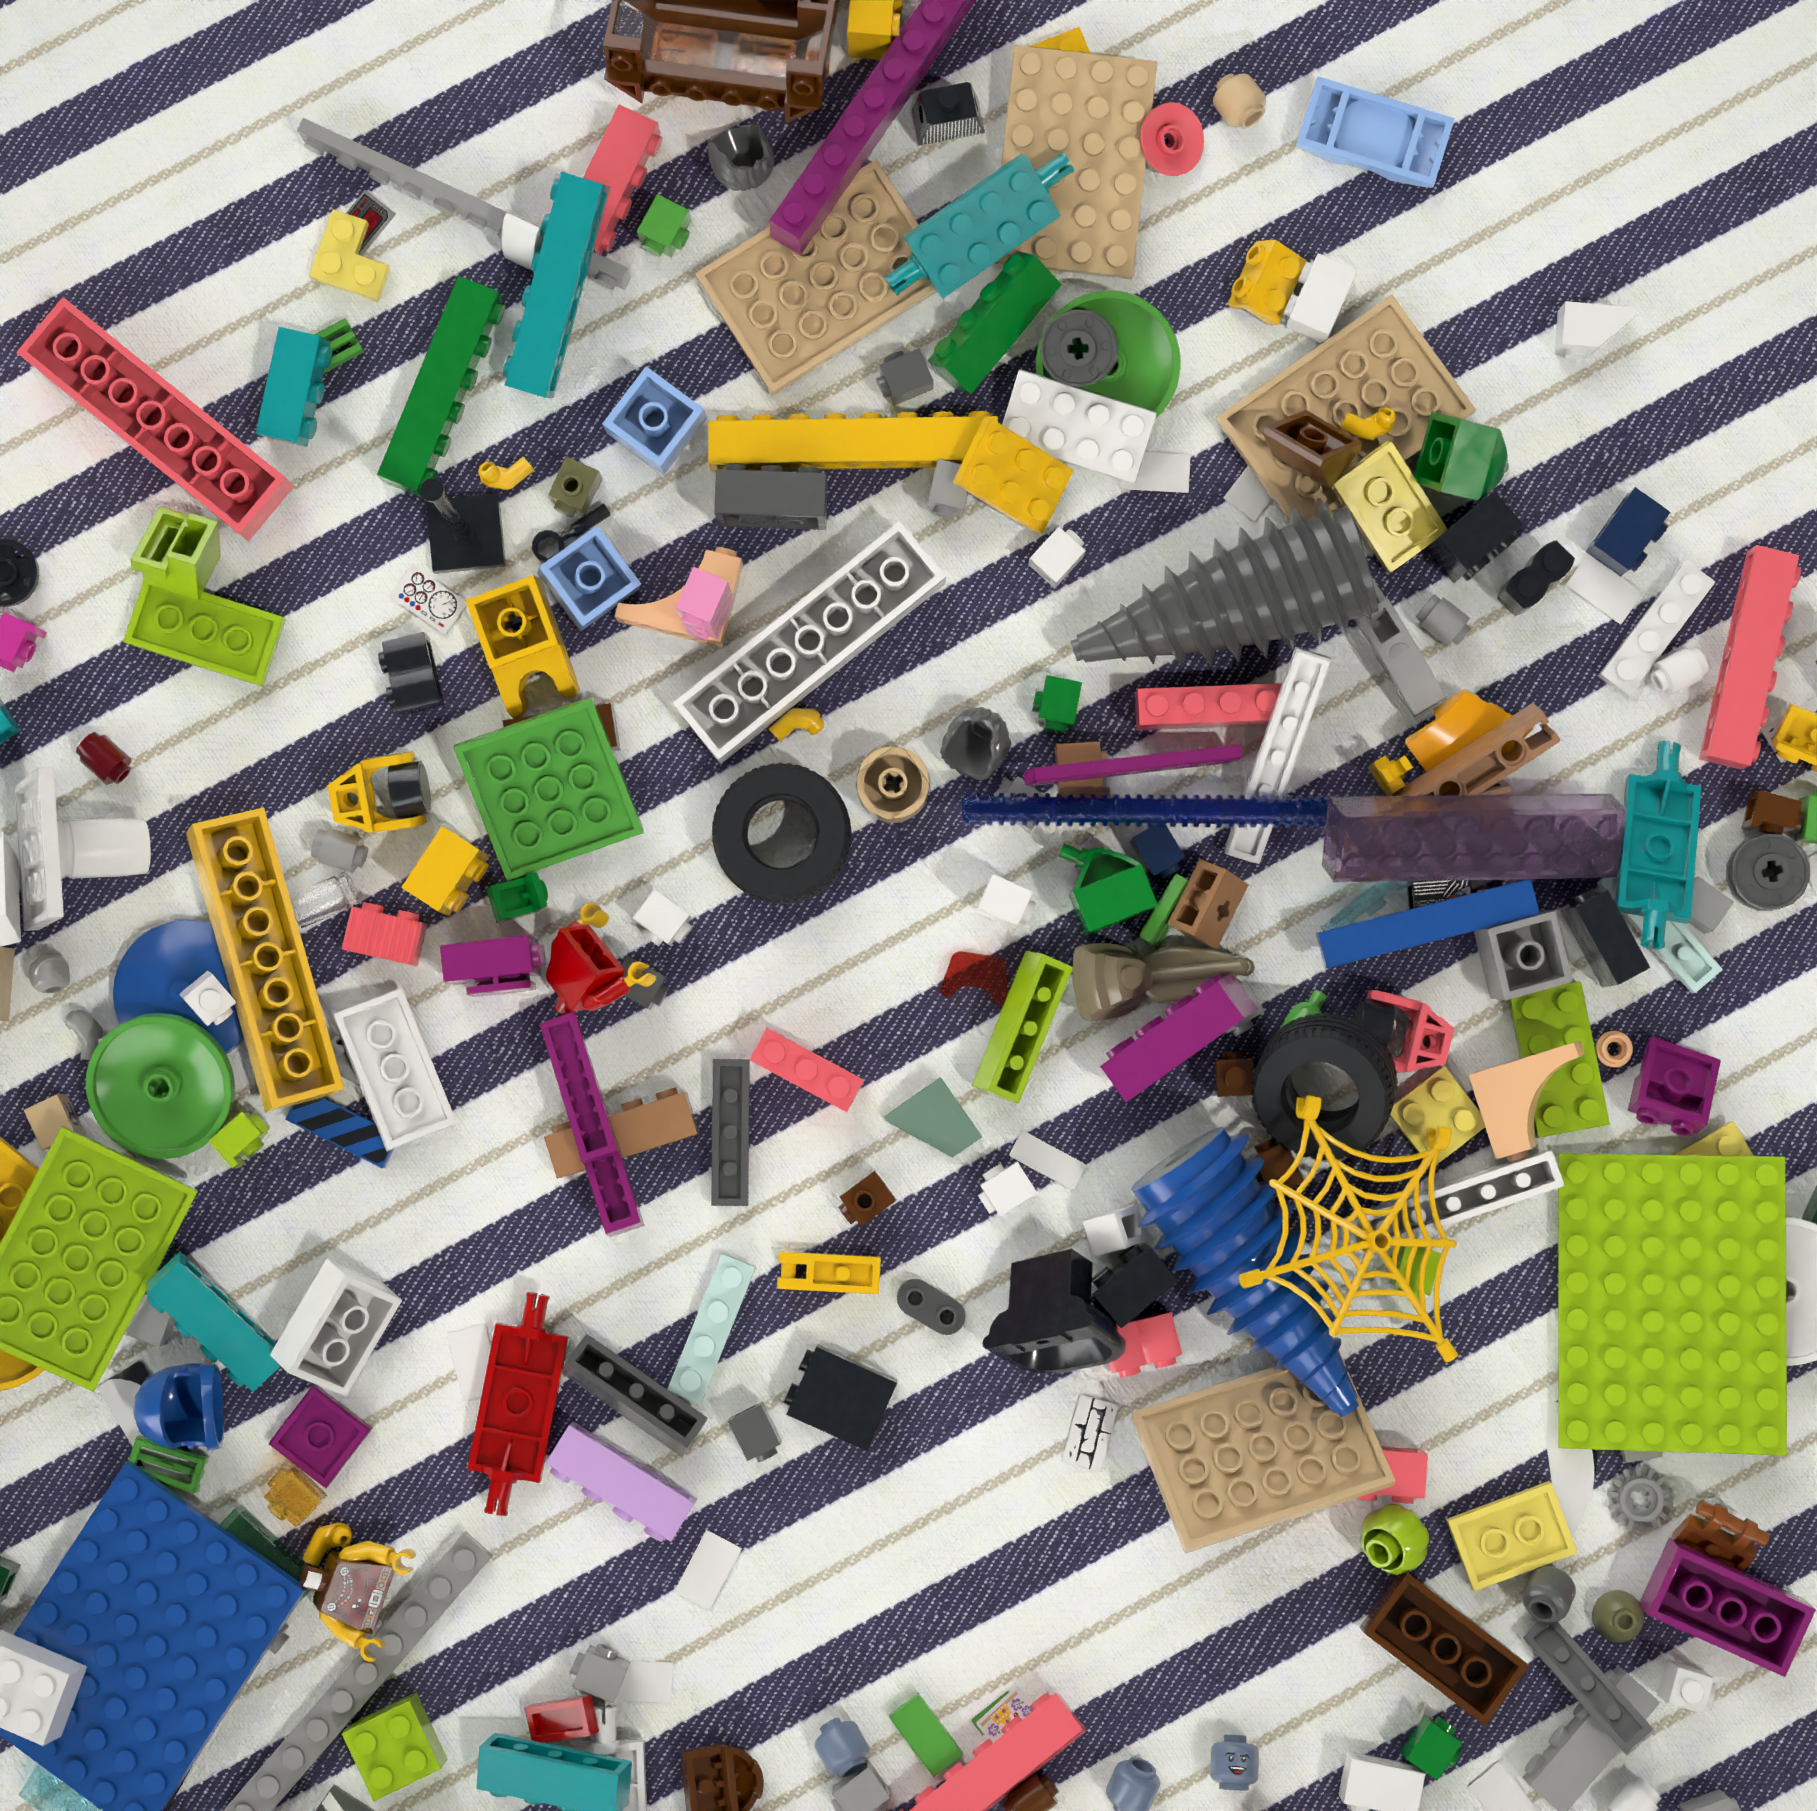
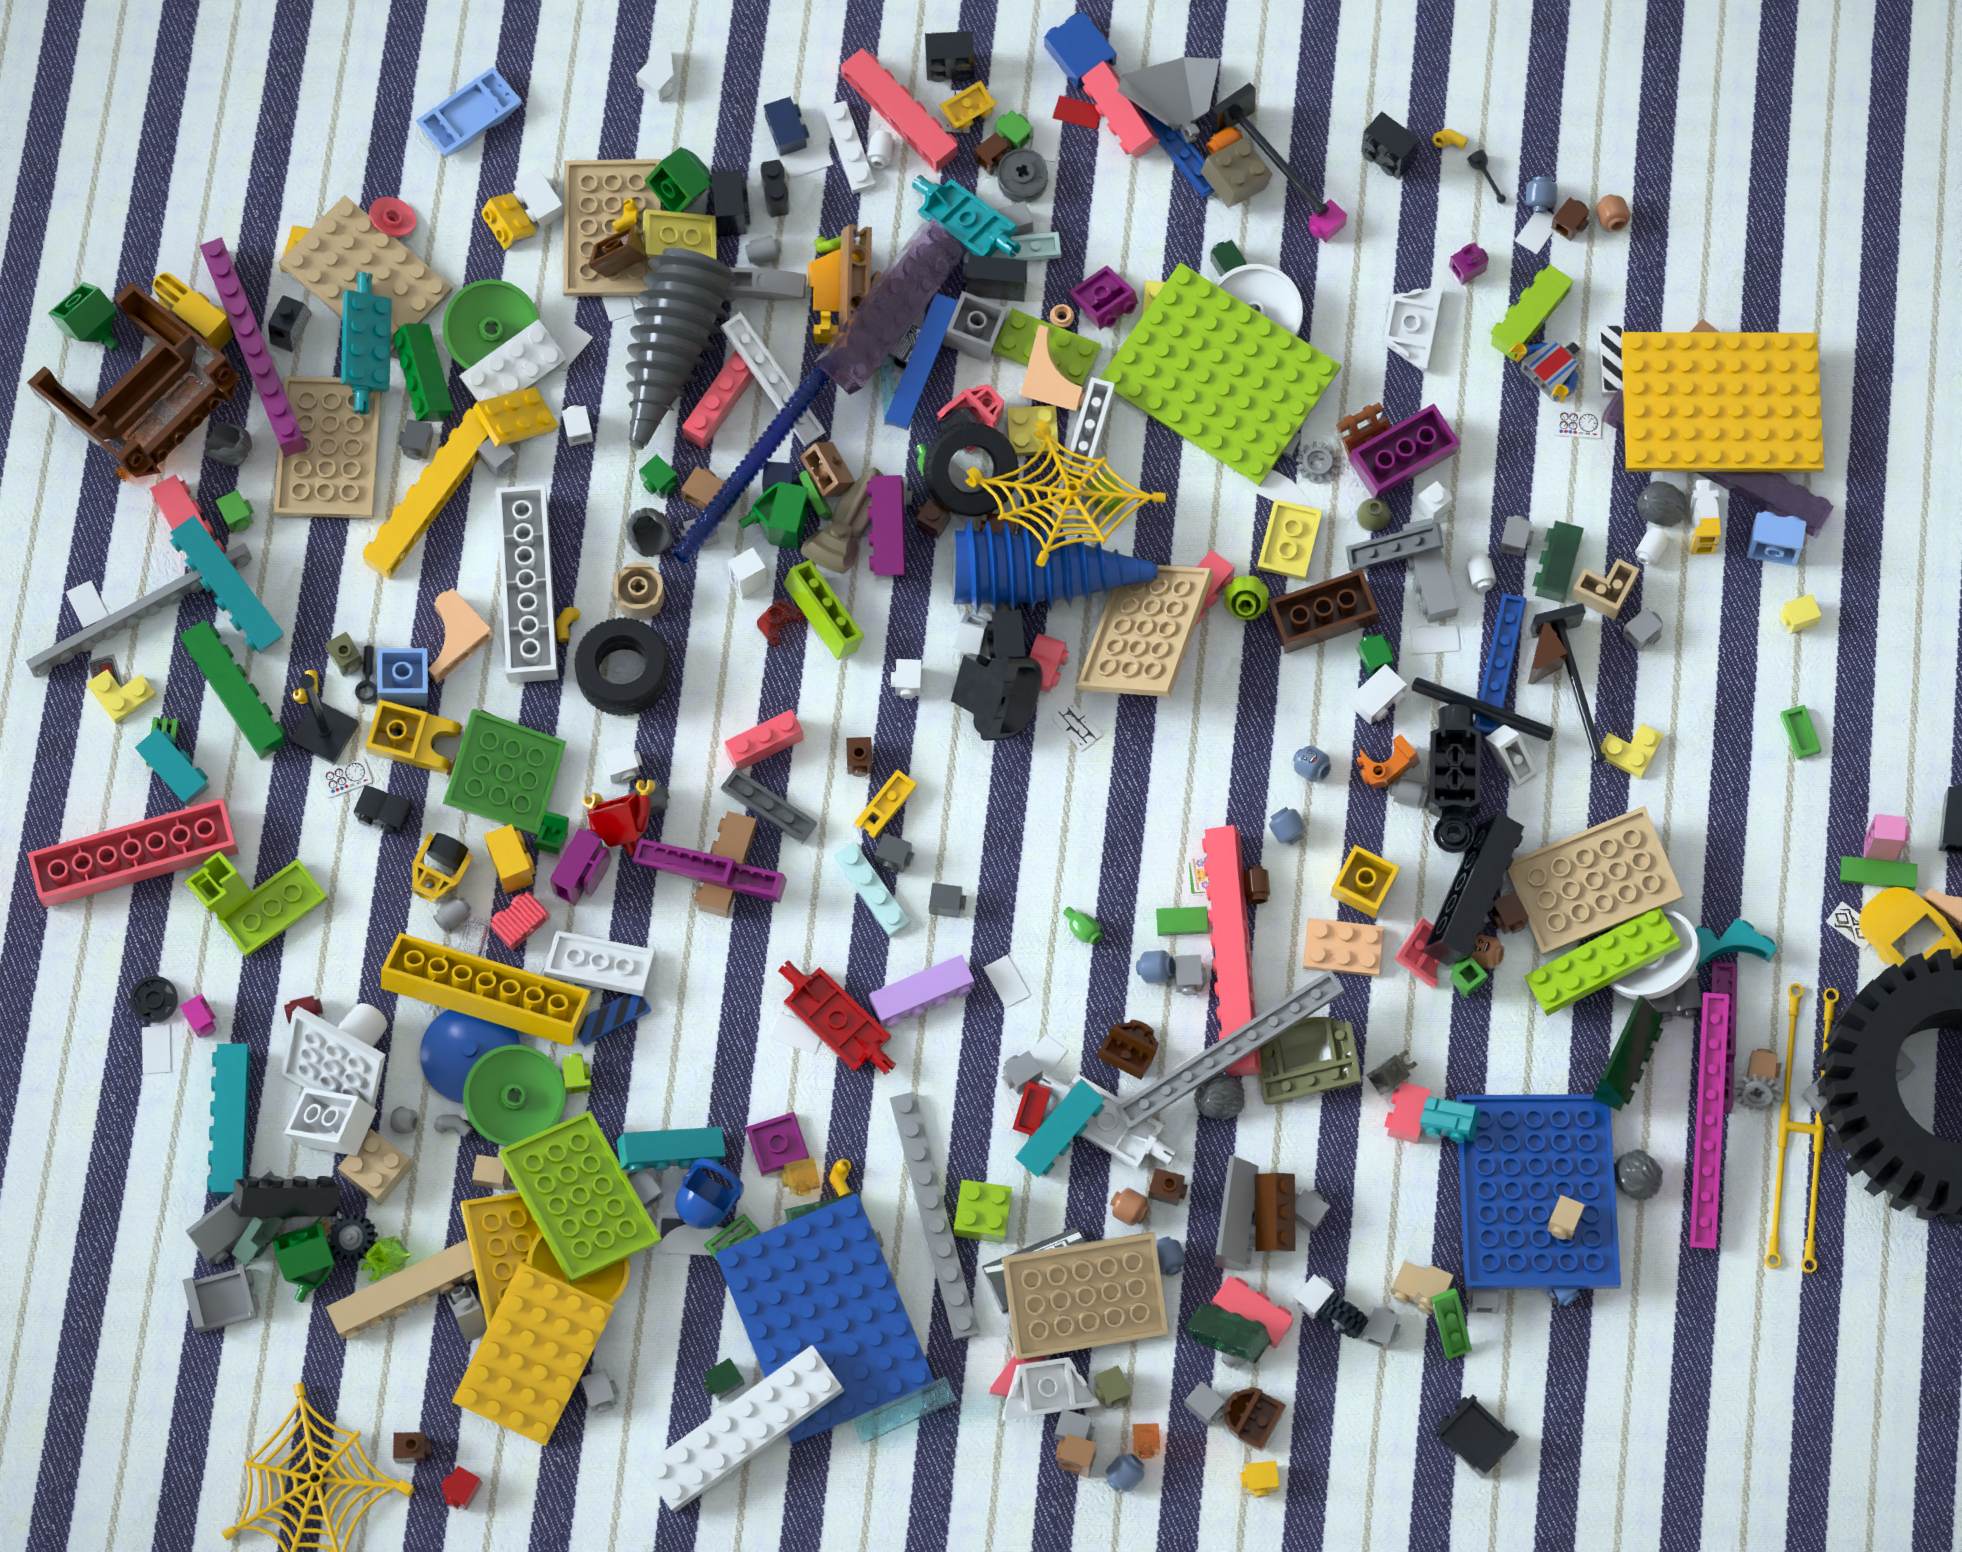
camera: 55 degrees left, 15 degrees down
(208, 999) = (485, 1030): white brick -> none
(335, 1327) = (722, 1084): white brick -> none
(354, 1590) = (878, 1174): torso -> none
(435, 136) = (87, 604): none -> white sticker
(520, 240) = (187, 589): white slope -> none
(634, 1395) = (878, 949): dark grey brick -> none
(654, 420) = (340, 585): light blue brick -> none
(704, 604) = (467, 611): bright pink brick -> none
(771, 498) = (432, 550): dark grey brick -> none
(771, 1328) = (894, 853): none -> dark grey brick
(837, 1620) = (1083, 926): none -> bright green plant
(840, 1396) = (959, 841): black brick -> none
(931, 1306) = (945, 763): dark grey plate -> none
(936, 1119) = (842, 690): sand green slope -> none
(1047, 1160) = (909, 649): white sticker -> none
(1066, 365) = (467, 320): dark grey wheel -> none
(1132, 765) = (722, 455): magenta tile -> none
(1239, 100) = (398, 168): tan head -> none
(1502, 693) = (824, 246): none -> lime arm
(1548, 1594) = (1333, 538): dark grey head -> none

